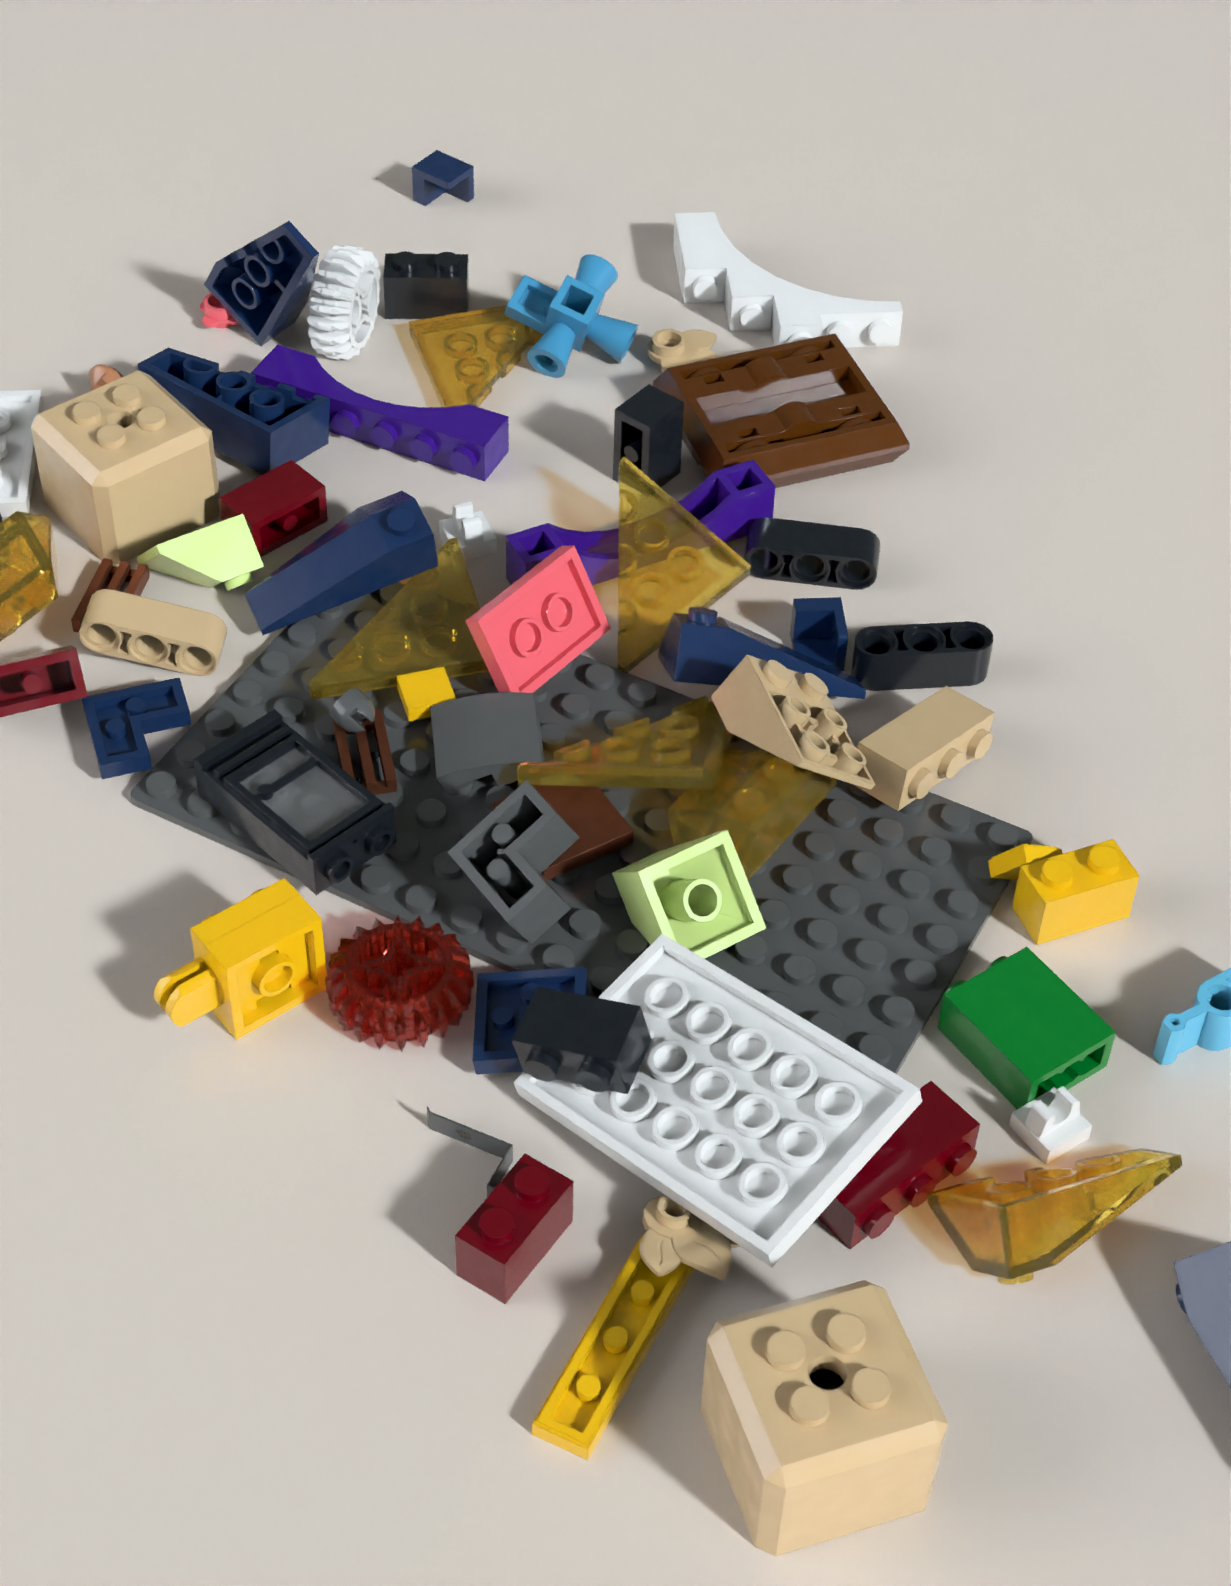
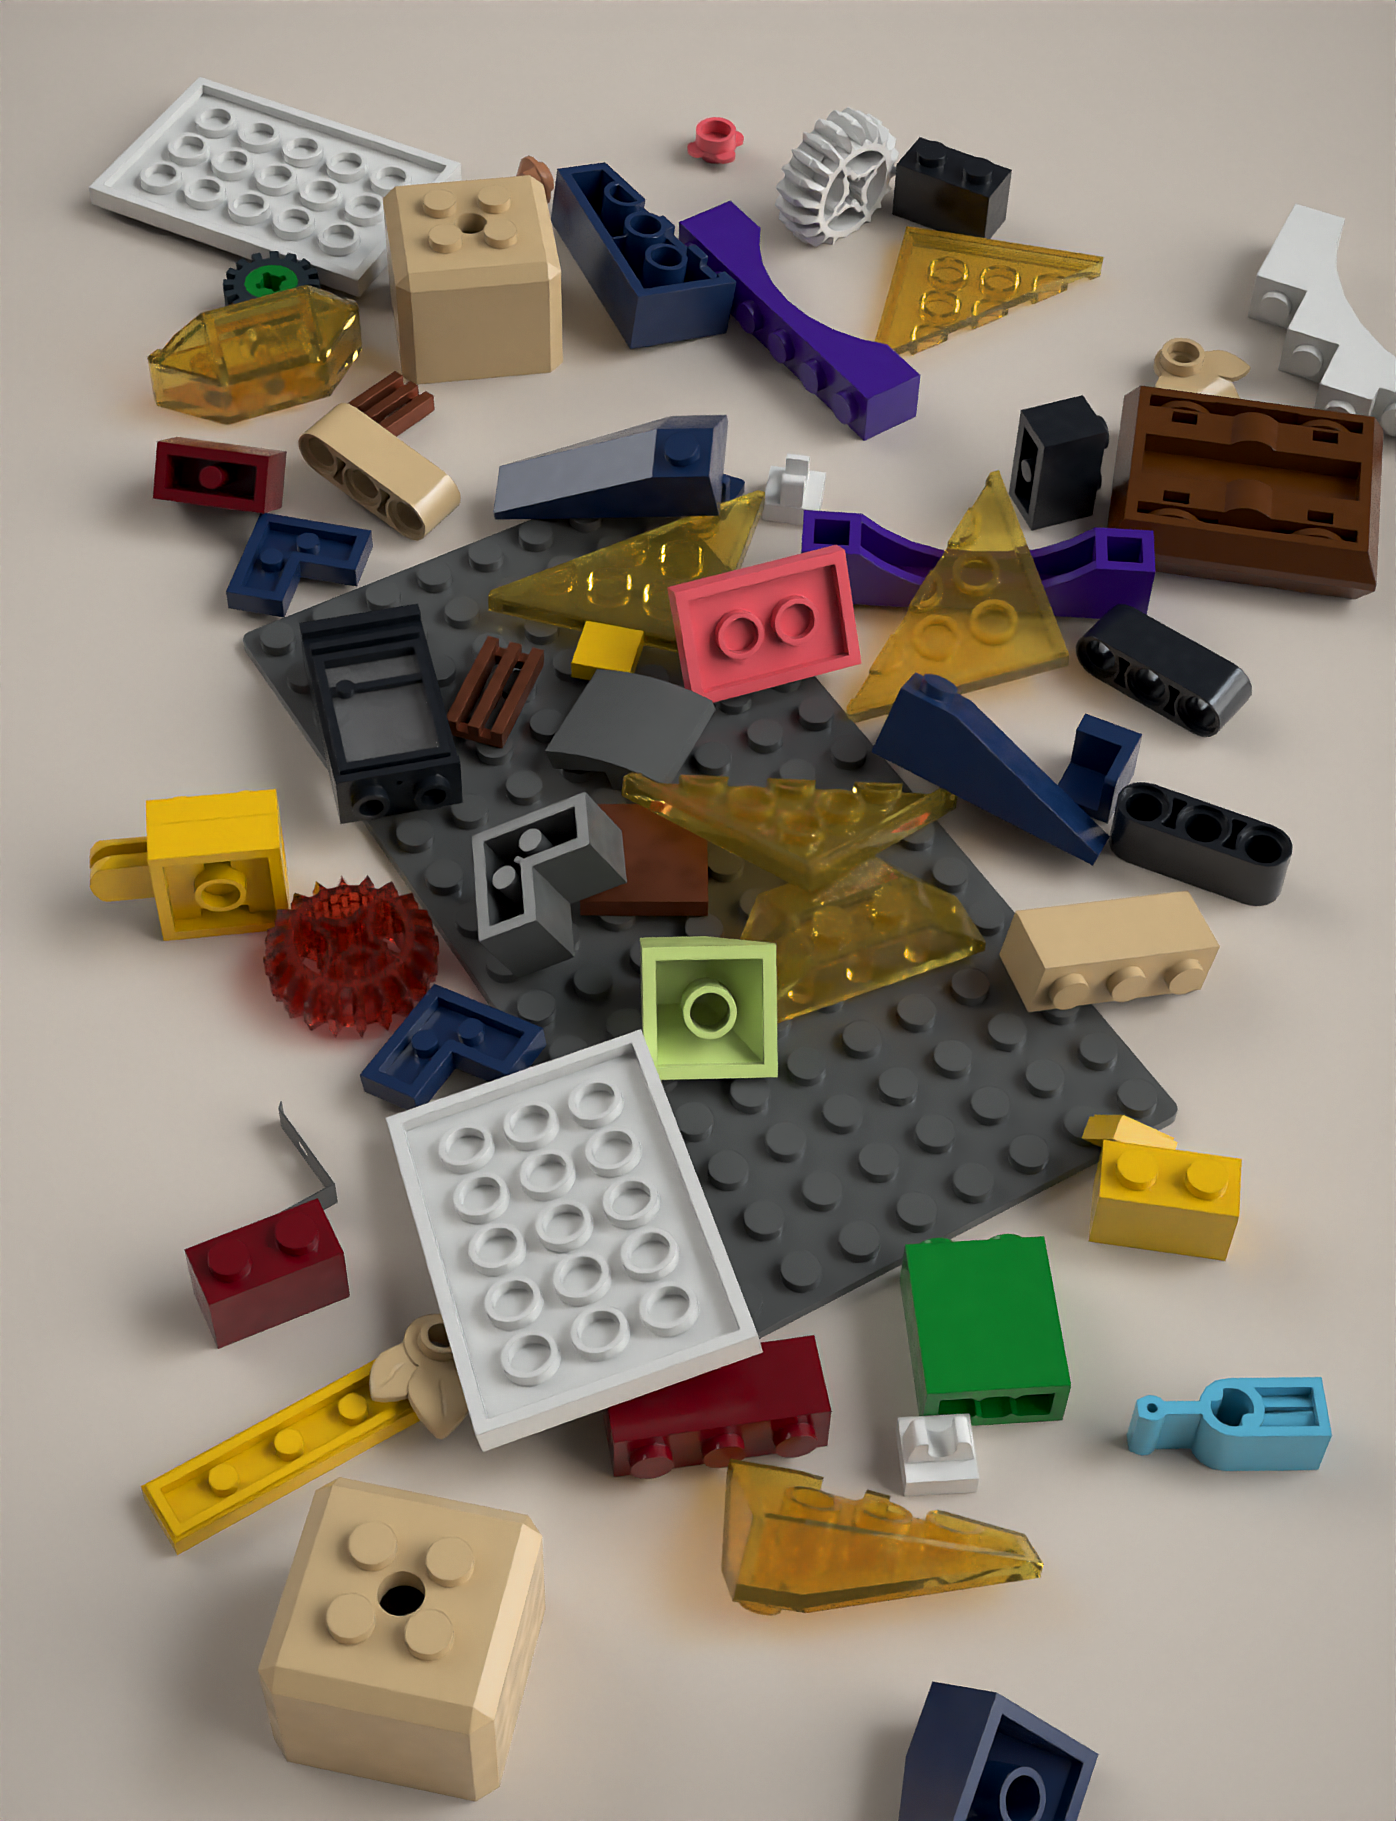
camera: 30 degrees right, 5 degrees up
(209, 555) = (496, 409): yellowish green slope -> none
(266, 281) = (751, 127): dark blue wedge -> none
(278, 506) = (602, 384): dark red brick -> none
(352, 711) = (502, 639): dark grey hinge -> none
(440, 175) = (1062, 67): dark blue panel -> none
(570, 316) = (1084, 285): dark azure brick -> none
(582, 1040) = (462, 1107): black brick -> none
(790, 719) = (953, 856): tan slope -> none

